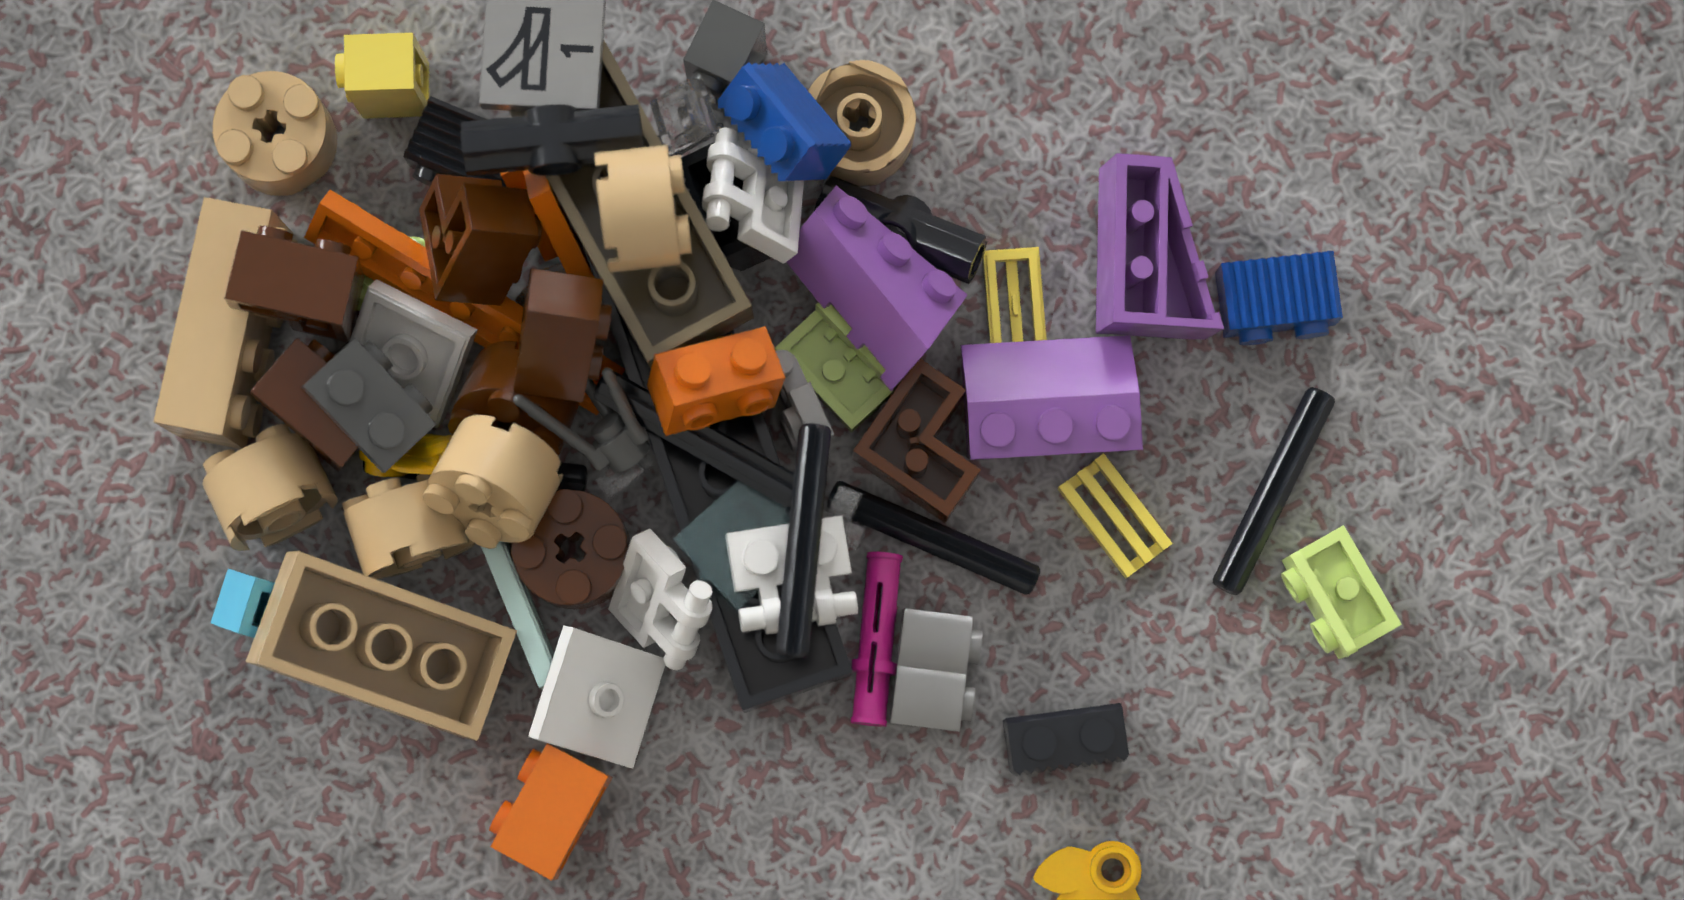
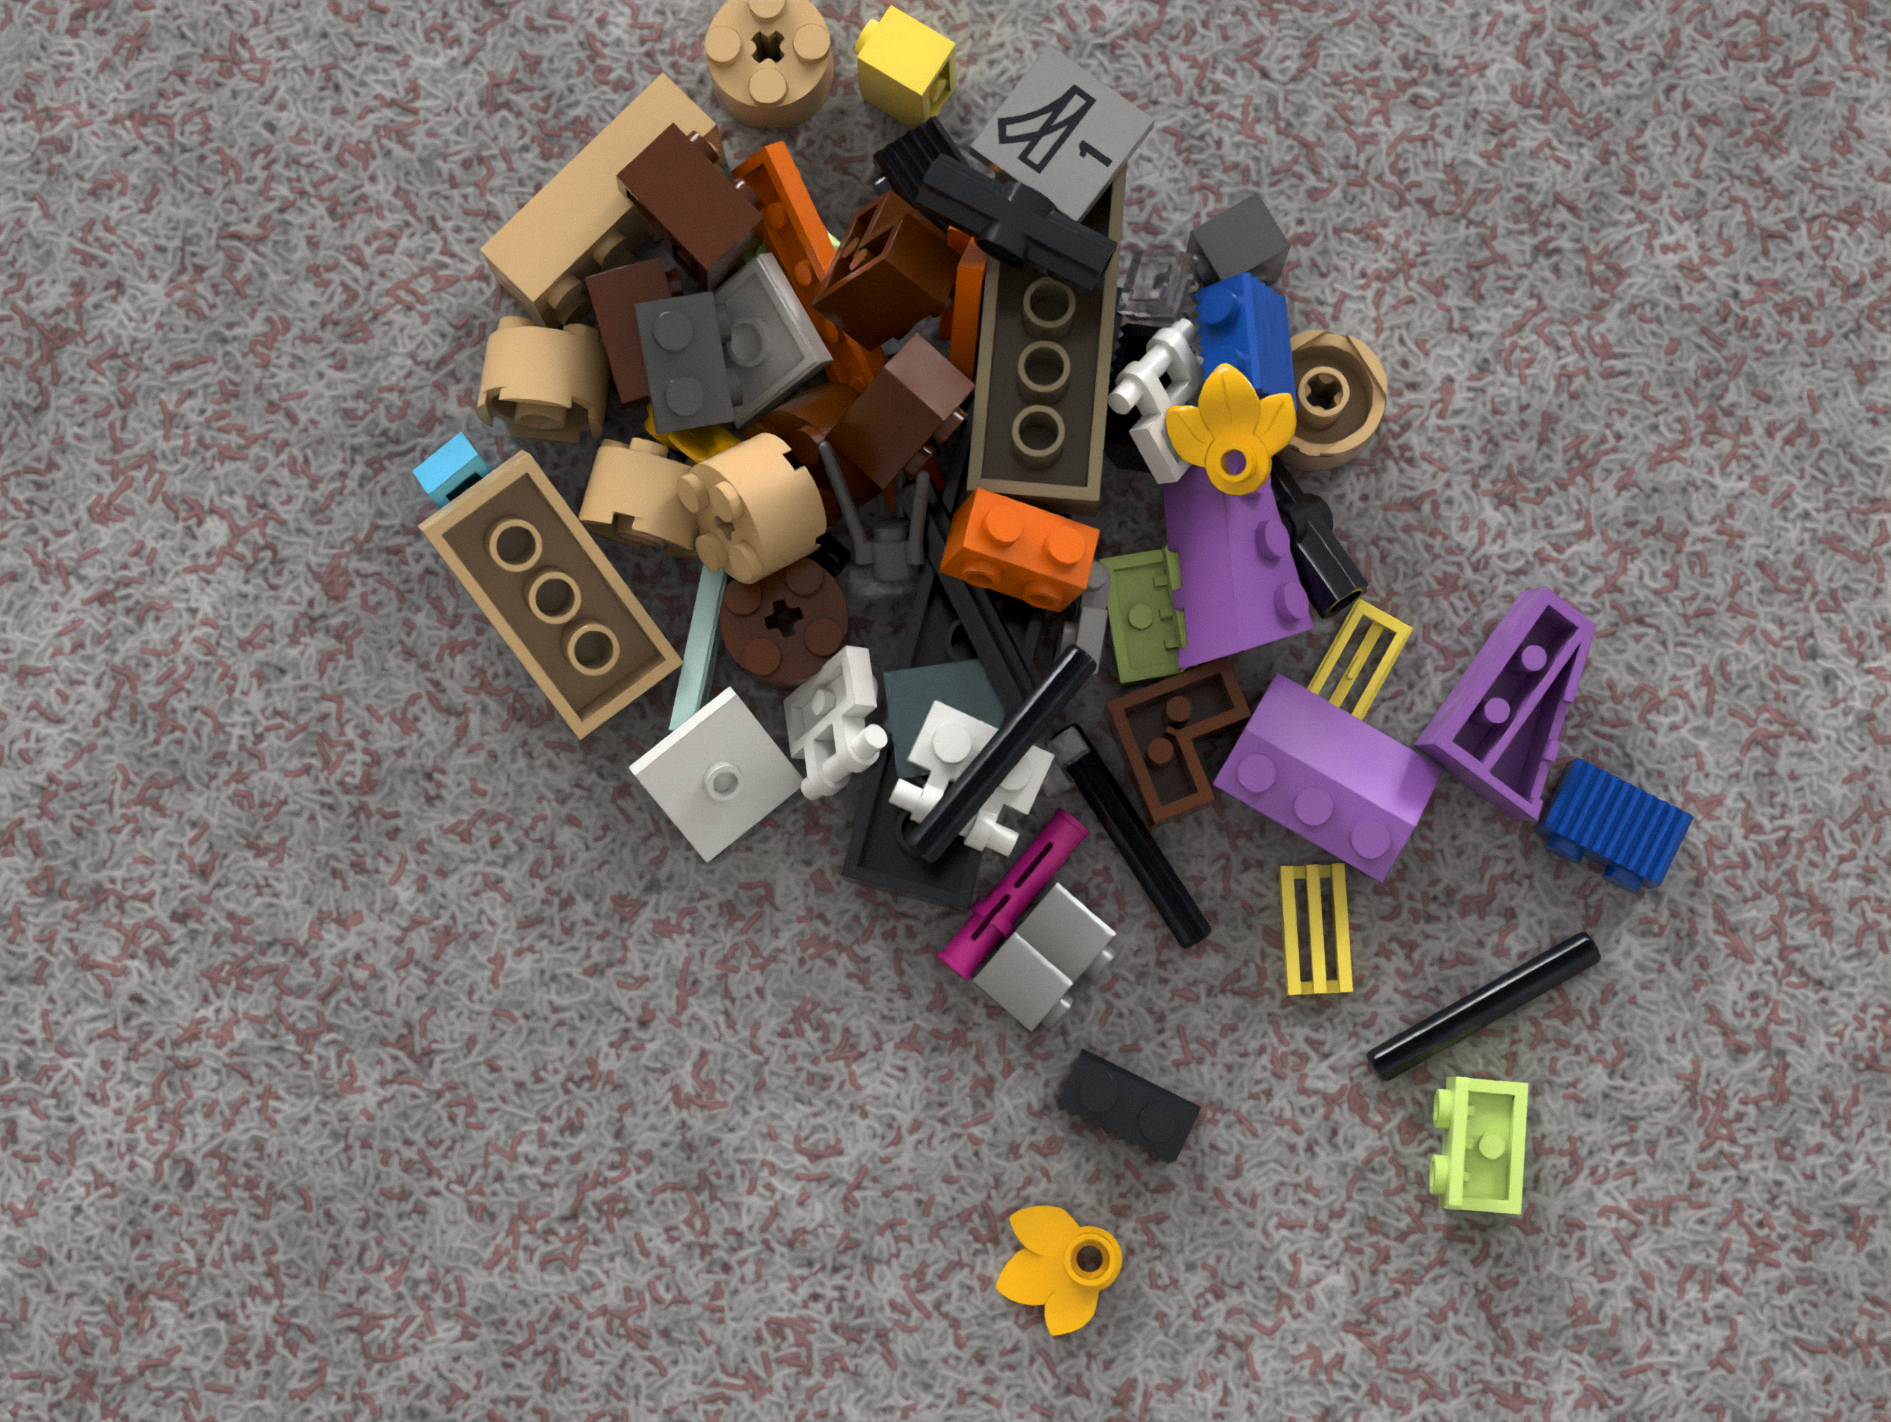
camera: 40 degrees right, 0 degrees up
(549, 810) = (603, 849): orange brick -> none
(640, 208) = (1054, 340): tan brick -> none
(808, 181) = (1232, 420): none -> yellow plate

